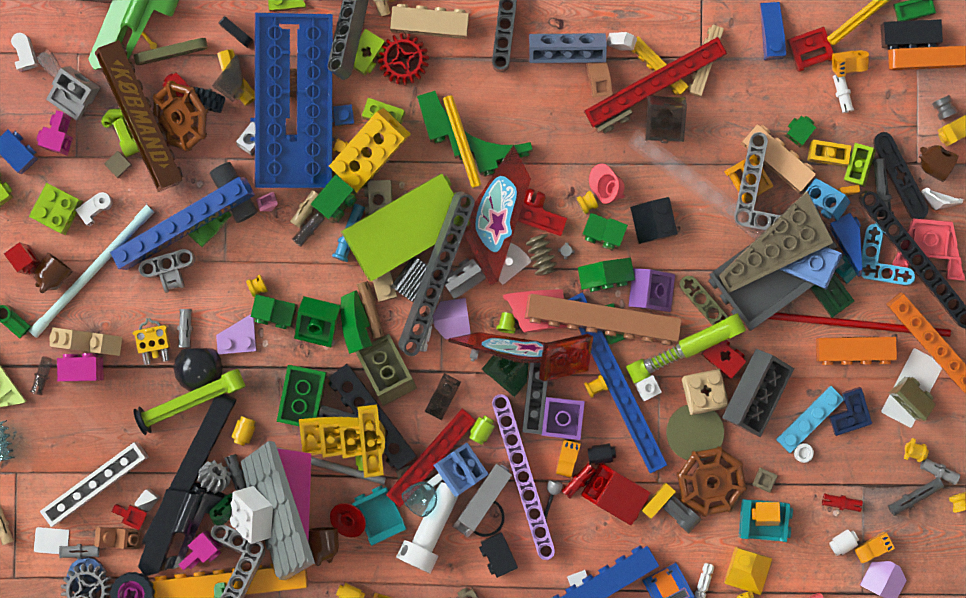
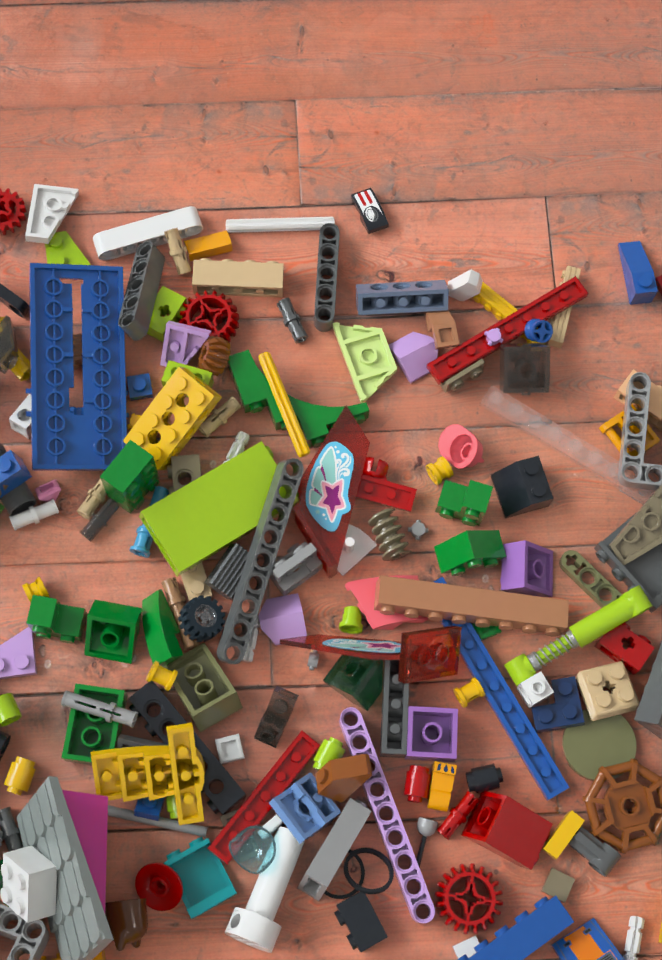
camera: 15 degrees left, 15 degrees down
(255, 222) = (34, 514): none -> white pin
(326, 394) = (127, 717): none -> light grey pin
(339, 462) = (149, 809): none -> blue plate
(355, 362) = (162, 675): none -> yellow bush
(380, 82) = (182, 342): none -> lavender wing
(392, 311) = (208, 612): none -> black wheel
(405, 419) = (229, 749): none -> white tile
(406, 94) = (214, 355): none -> dark orange gear
(418, 137) = (219, 416): none -> tan pin
(421, 174) = (238, 447): none -> white axle
(473, 62) = (292, 320): none -> dark grey pin
(491, 448) = (343, 776): none -> dark orange slope
(499, 531) = (360, 888): none -> black piece
(534, 99) = (366, 357): none -> yellowish green wing
(549, 455) = (417, 783): none -> red brick
(574, 97) = (413, 354): none -> lavender slope
(598, 546) = (469, 886): none -> red gear
(641, 90) = (493, 336): none -> lavender piece
(651, 537) = (558, 885): none -> dark tan tile
(670, 406) = (565, 711): none -> dark blue plate
(681, 91) = (543, 332): none -> blue wheel

